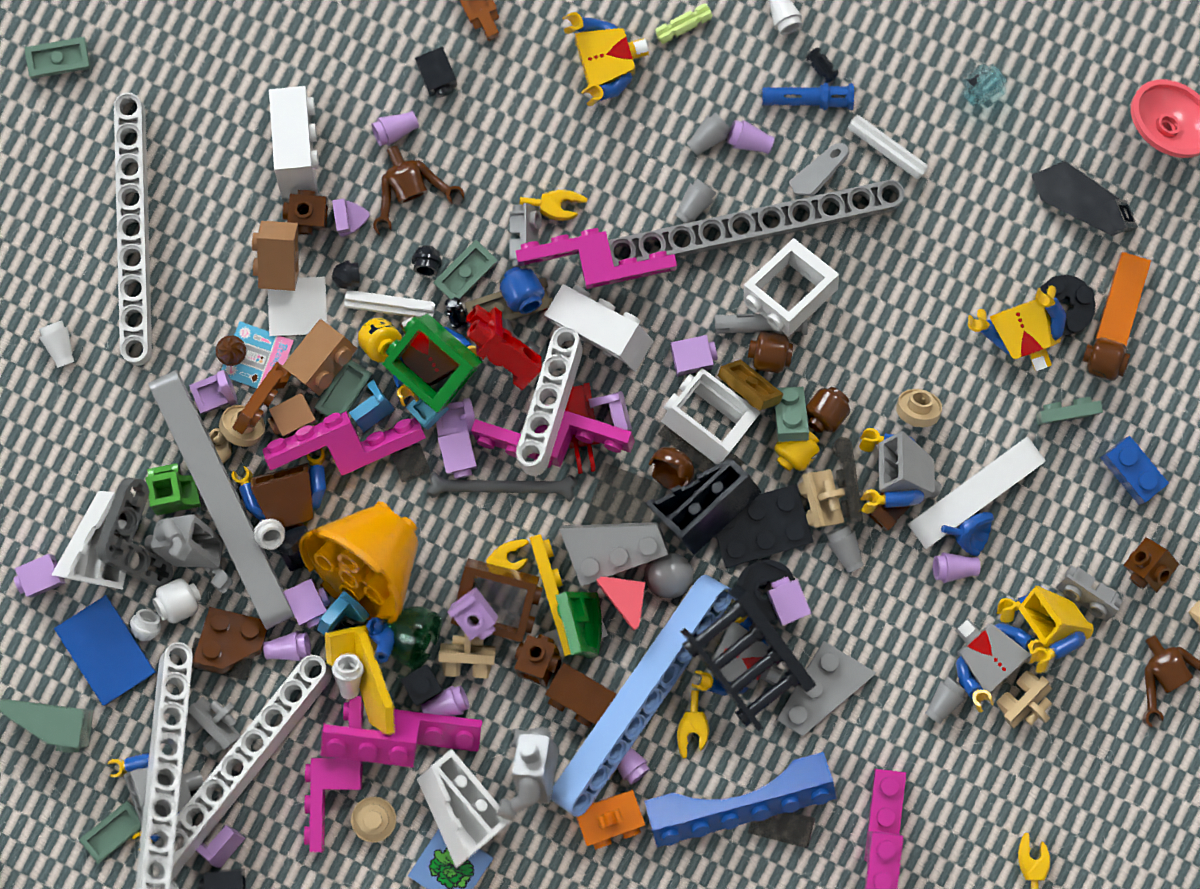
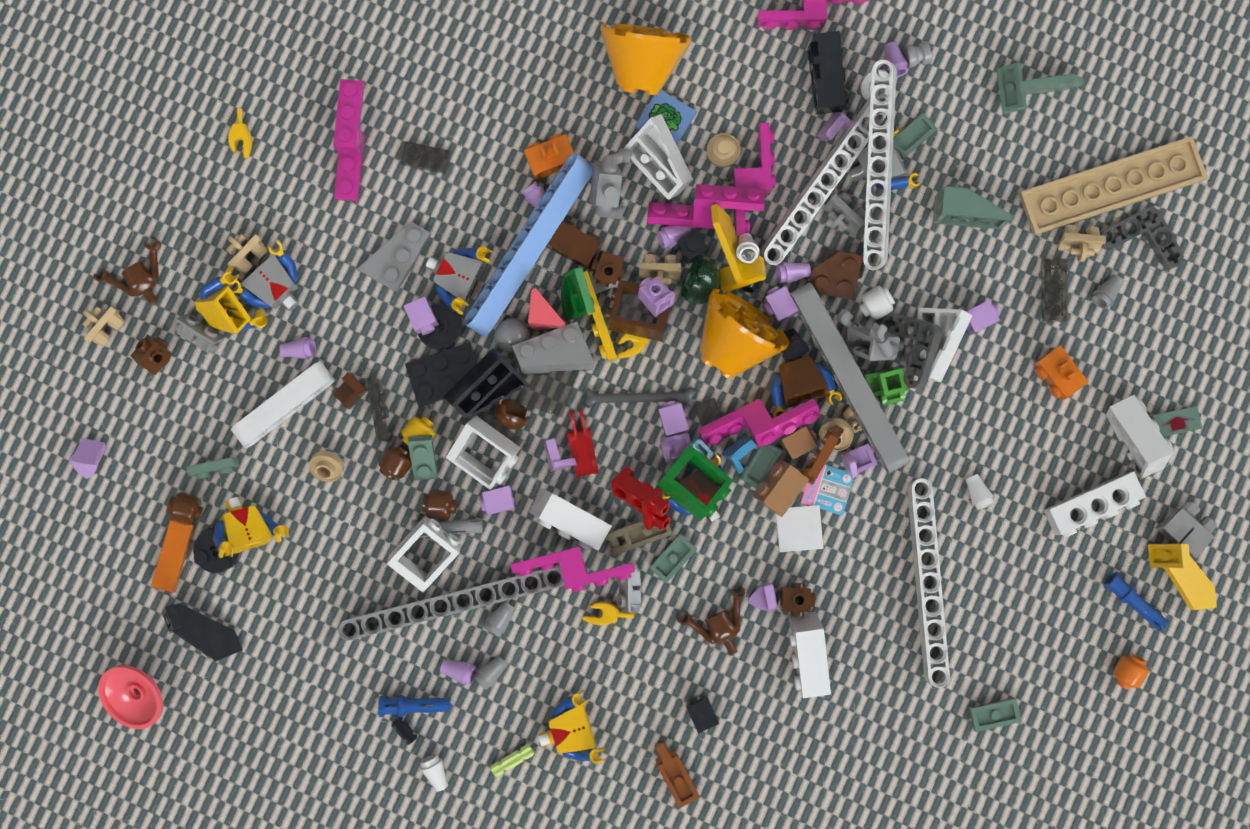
camera: 175 degrees left, 0 degrees up
(105, 650) = (927, 266): blue tile -> none
(145, 624) = (899, 284): white plate -> none
(231, 350) = (847, 491): reddish brown plate -> none
(269, 533) = (811, 350): white plate -> none
(276, 255) = (817, 564): medium nougat brick -> none
(343, 606) = (752, 303): dark azure tile -> none
(346, 275) = (763, 552): black plate -> none
(376, 337) = (737, 503): yellow head -> none
(383, 637) = (722, 277): blue arm -> none
(388, 304) = (729, 531): white axle -> none
(392, 128) = (732, 669): lavender cone -> none
(426, 261) = (702, 566): black plate -> none
(455, 313) = (679, 526): black piece -> none
(522, 290) = (629, 543): blue head -> none
(549, 387) = (604, 469): white beam -> none
(583, 428) = (602, 433): dark pink bracket -> none
(681, 817) = (409, 184): arch -> none
(692, 722) = (491, 229): yellow hand -> none
(750, 385) = (453, 478): pearl gold plate -> none
(777, 653) = (430, 274): black fence -> none
(819, 171) = (404, 647): light grey piece -> none
(822, 498) = (398, 395): tan hips -> none
(845, 547) = (380, 360): light grey cone -> none
(887, 147) = (352, 668): white axle -> none
(904, 471) = (336, 416): light grey torso -> none
(946, 699) = (304, 251): light grey cone -> none
(972, 533) = (285, 374): blue piece -> none
(984, 85) = (278, 718): clear light blue head -> none
(1134, 470) = (163, 425): blue brick -> none

